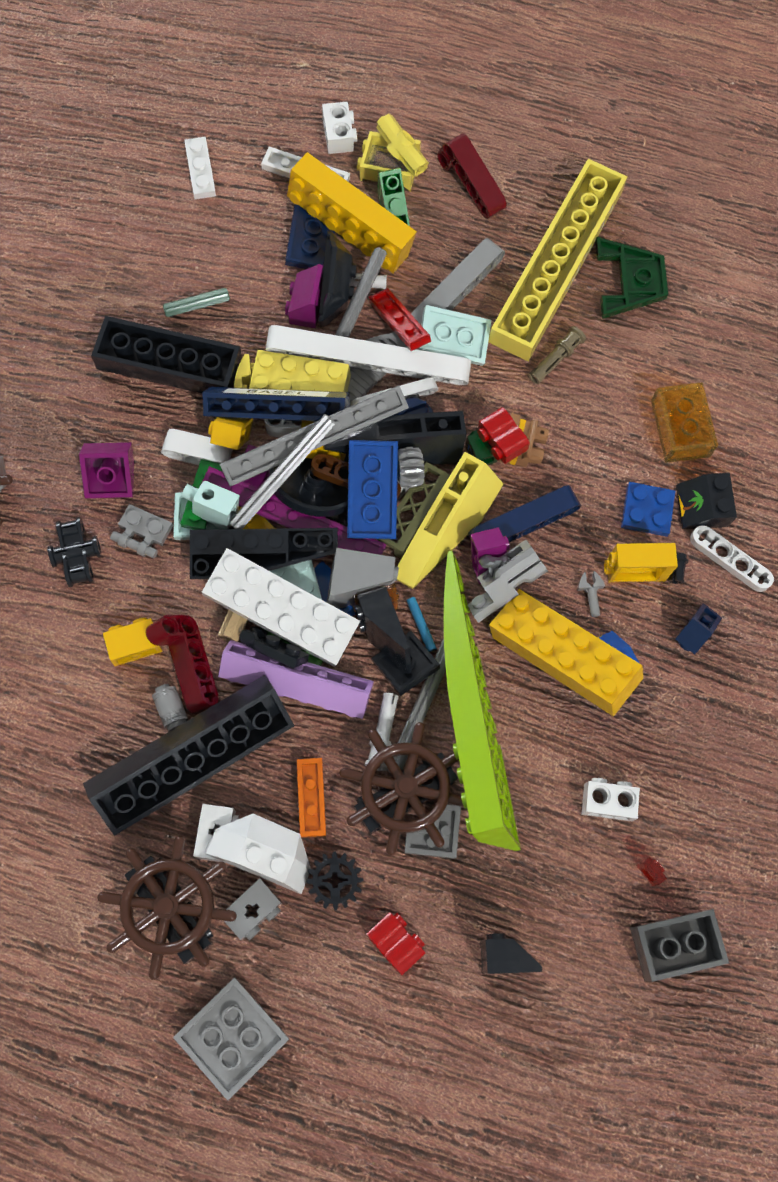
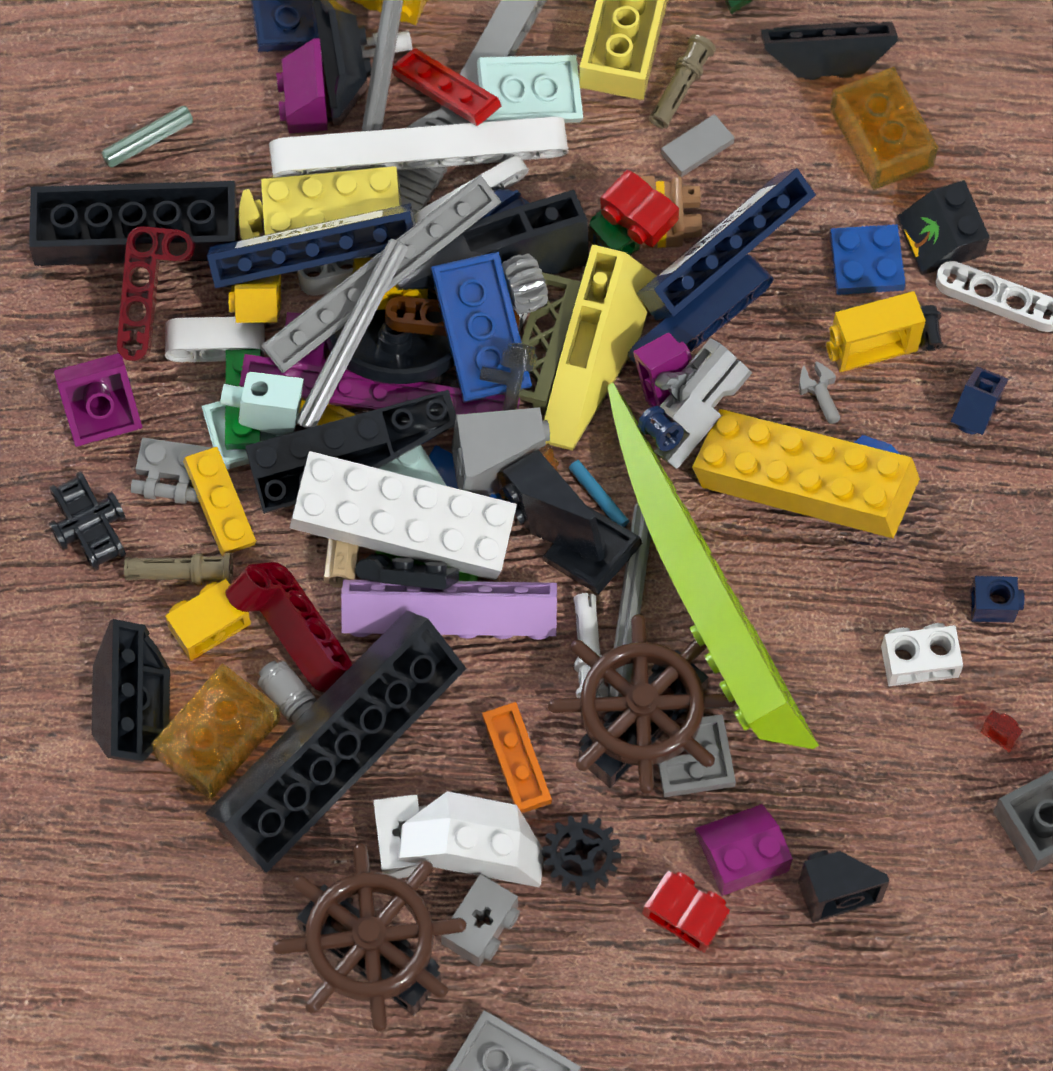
camera: 10 degrees left, 5 degrees down
(63, 682) = (129, 692): none -> black wedge
(111, 724) = (216, 731): none -> clear yellow brick
(136, 604) = (197, 568): none -> dark tan pin
(159, 408) = (147, 294): none -> dark red beam
(165, 561) = (219, 501): none -> yellow plate
(391, 520) = (518, 358): none -> clear smoke piece
(448, 906) = (744, 849): none -> magenta slope
(474, 592) = (660, 428): none -> dark blue bush
(555, 401) = (697, 145): none -> light grey tile
(555, 475) = (726, 244): none -> dark blue brick
(662, 358) = (829, 47): none -> black wedge
(662, 777) = (986, 610): none -> dark blue brick

